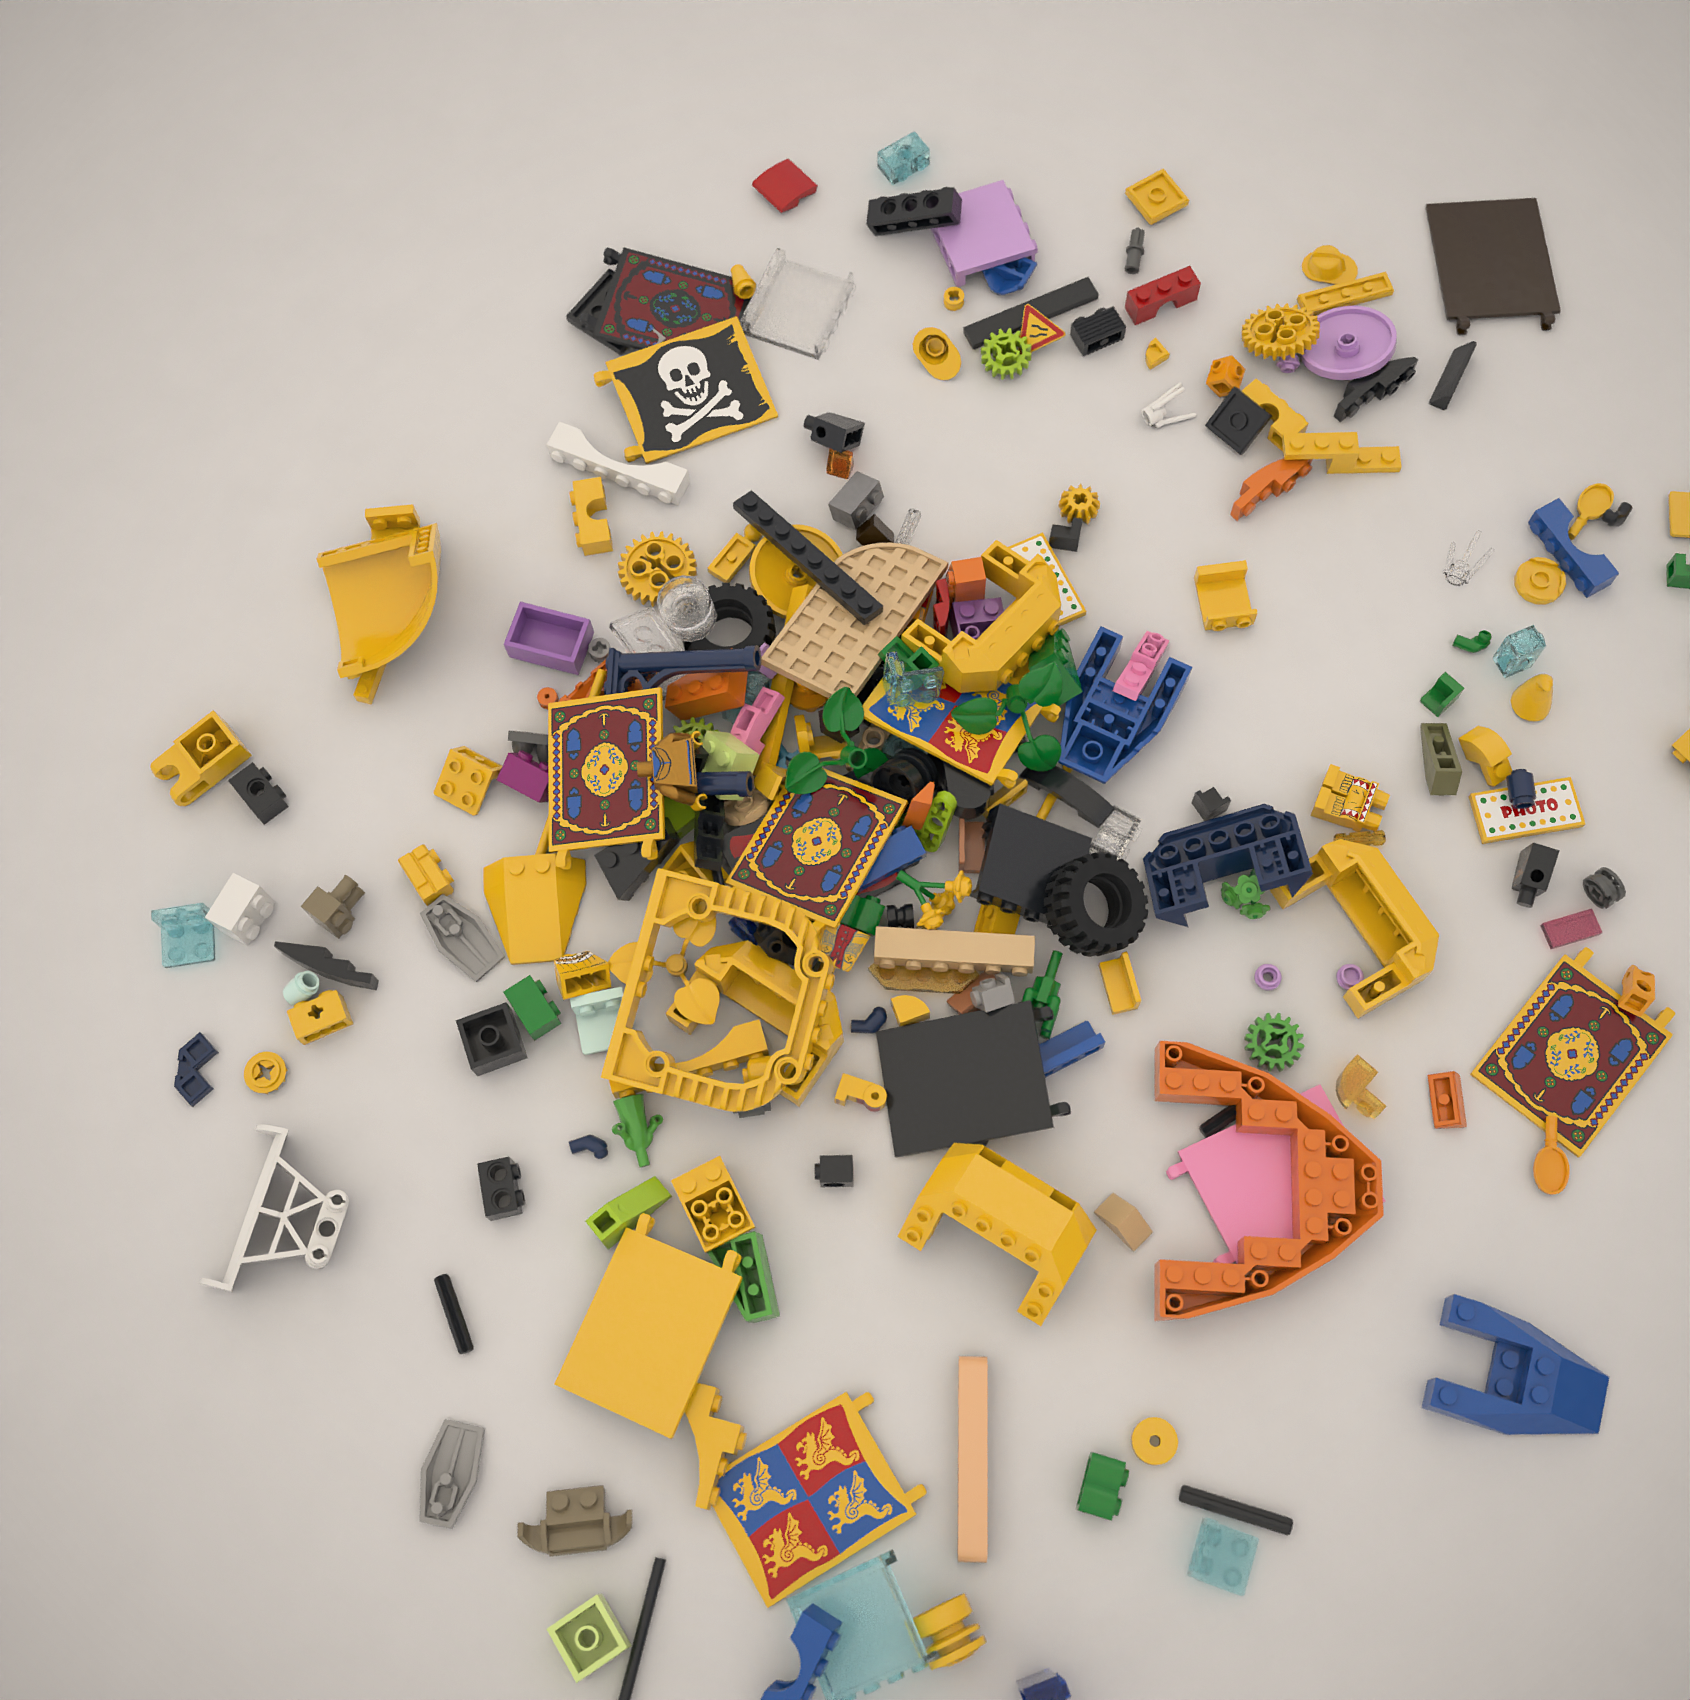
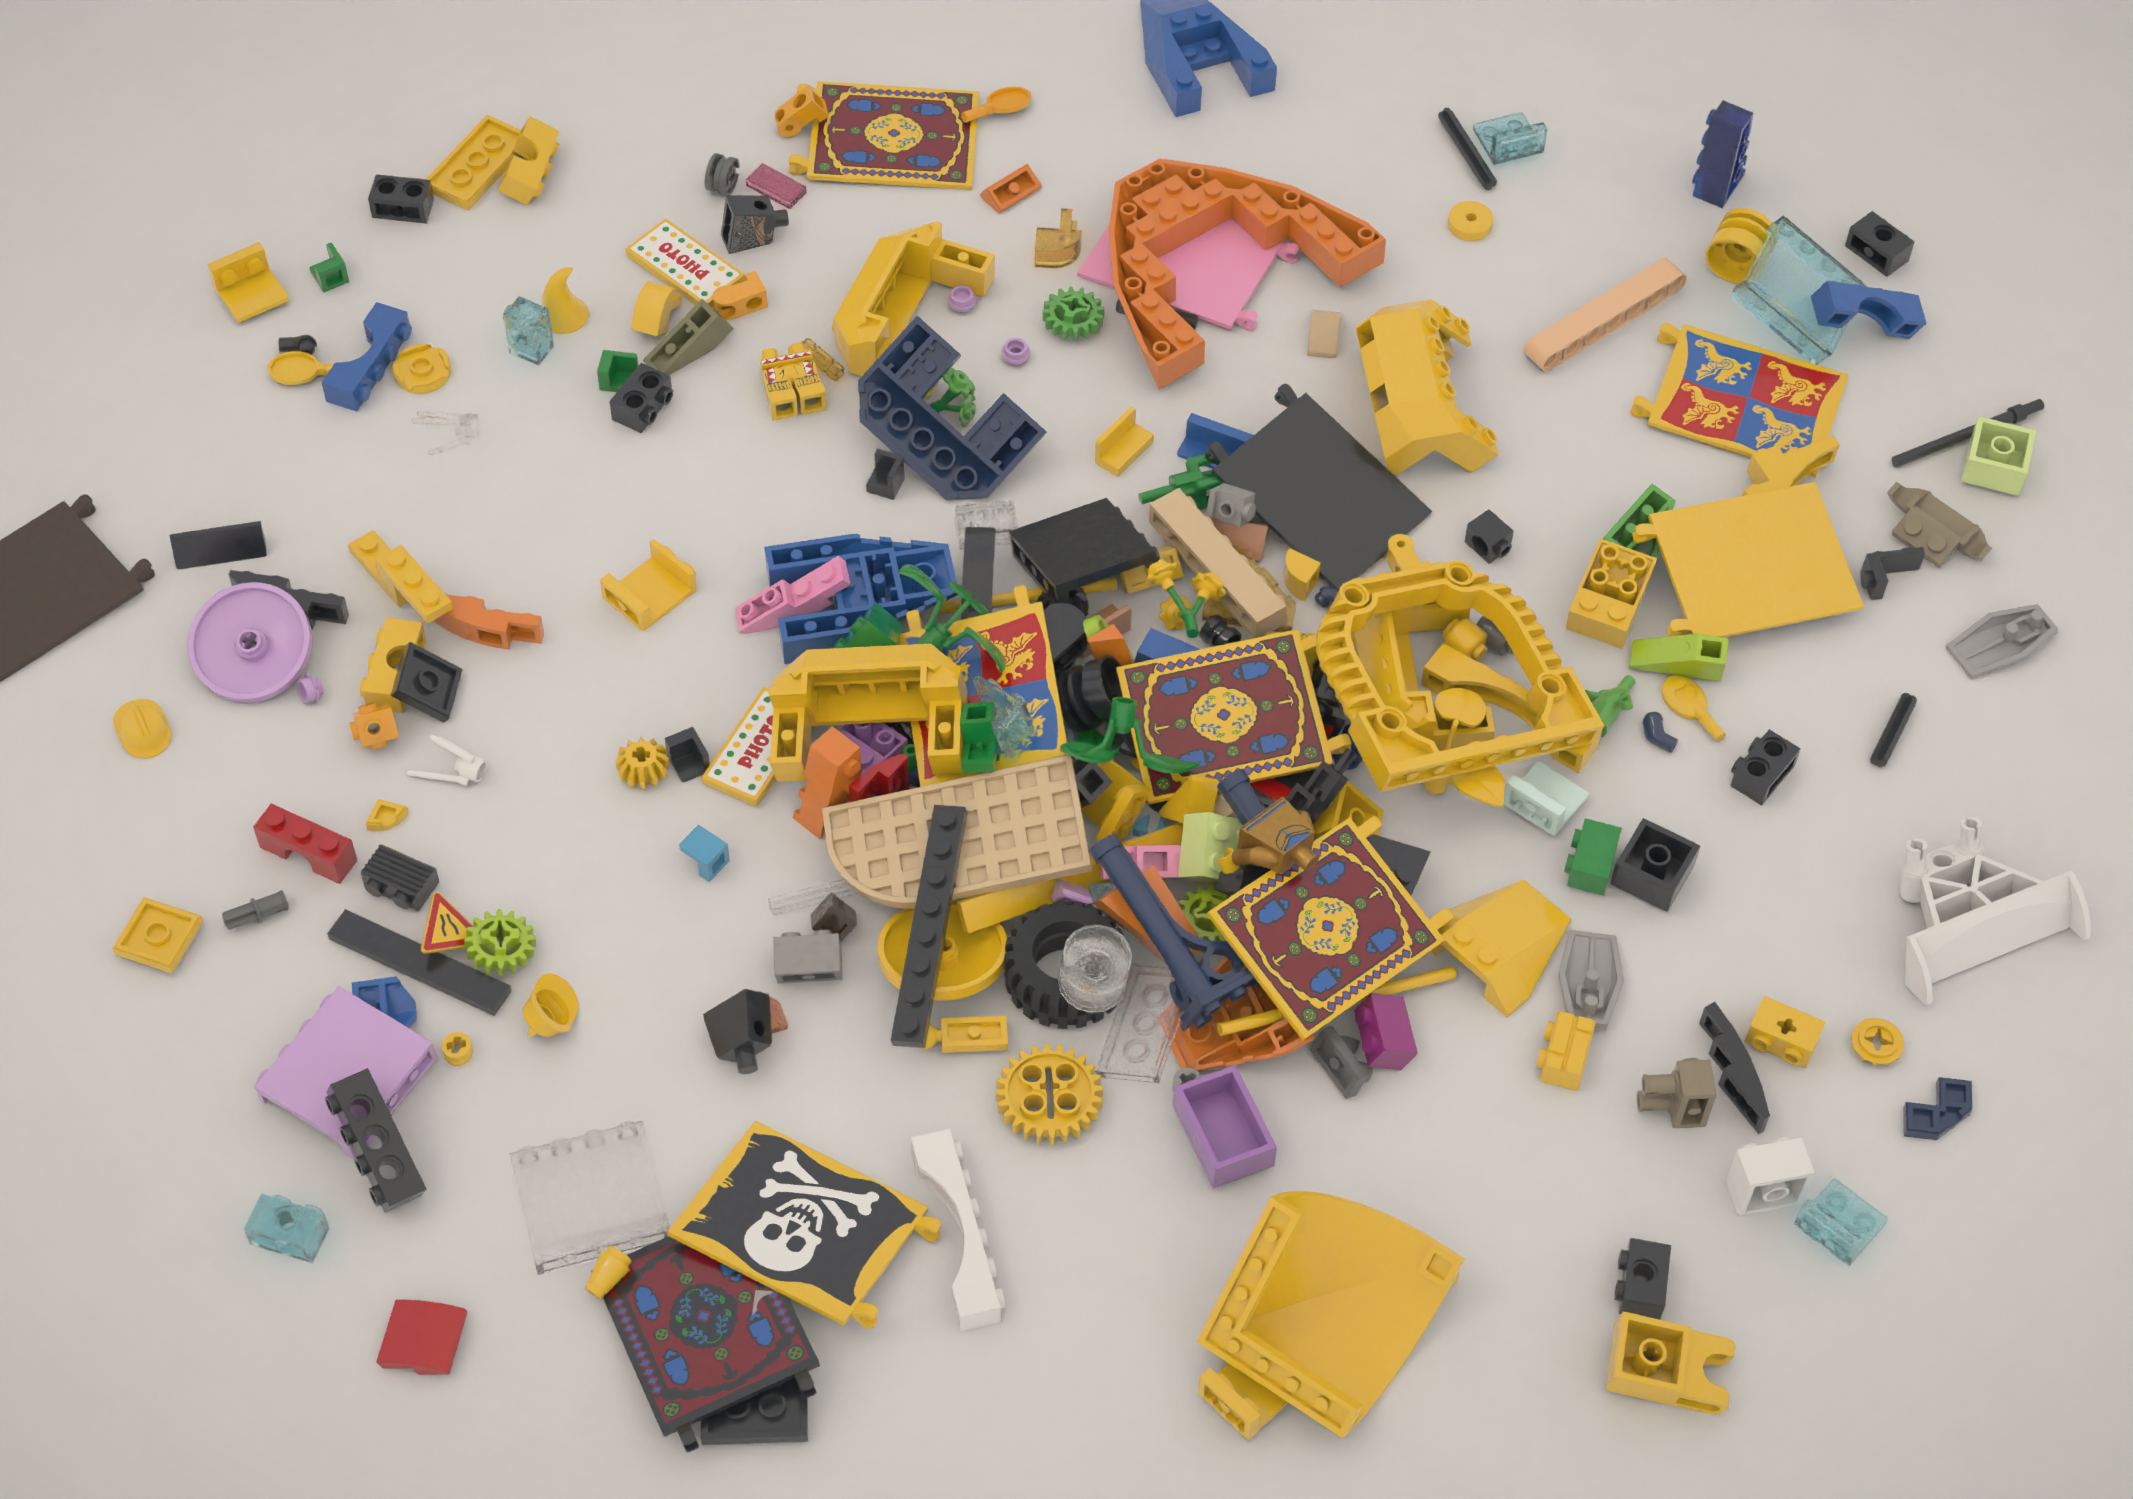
camera: 135 degrees left, 15 degrees down
(301, 987) = (1778, 1063): light aqua brick -> none
(466, 779) = (1433, 1090): yellow bracket -> none
(546, 696) = (1283, 1094): orange piece -> none
(575, 1423) = (1881, 563): none -> black bracket
(581, 974) = (1528, 832): yellow torso -> none
(593, 534) = (1027, 1226): yellow arch -> none
(593, 1191) = (1689, 702): none -> yellow piece
(982, 496) = (707, 850): none -> dark azure panel
(1101, 1486) = (1539, 228): green brick -> none
(1124, 901) = (1077, 479): black tyre -> none
(1280, 331) = (280, 733): yellow gear -> none
(1346, 293) = (173, 692): yellow tile -> none
(1409, 692) = (641, 398): none -> black brick
(1459, 822) = (741, 297): none -> light orange leg
(1474, 644) = (537, 379): green arm -> none
(1521, 789) = (674, 265): dark blue brick -> none

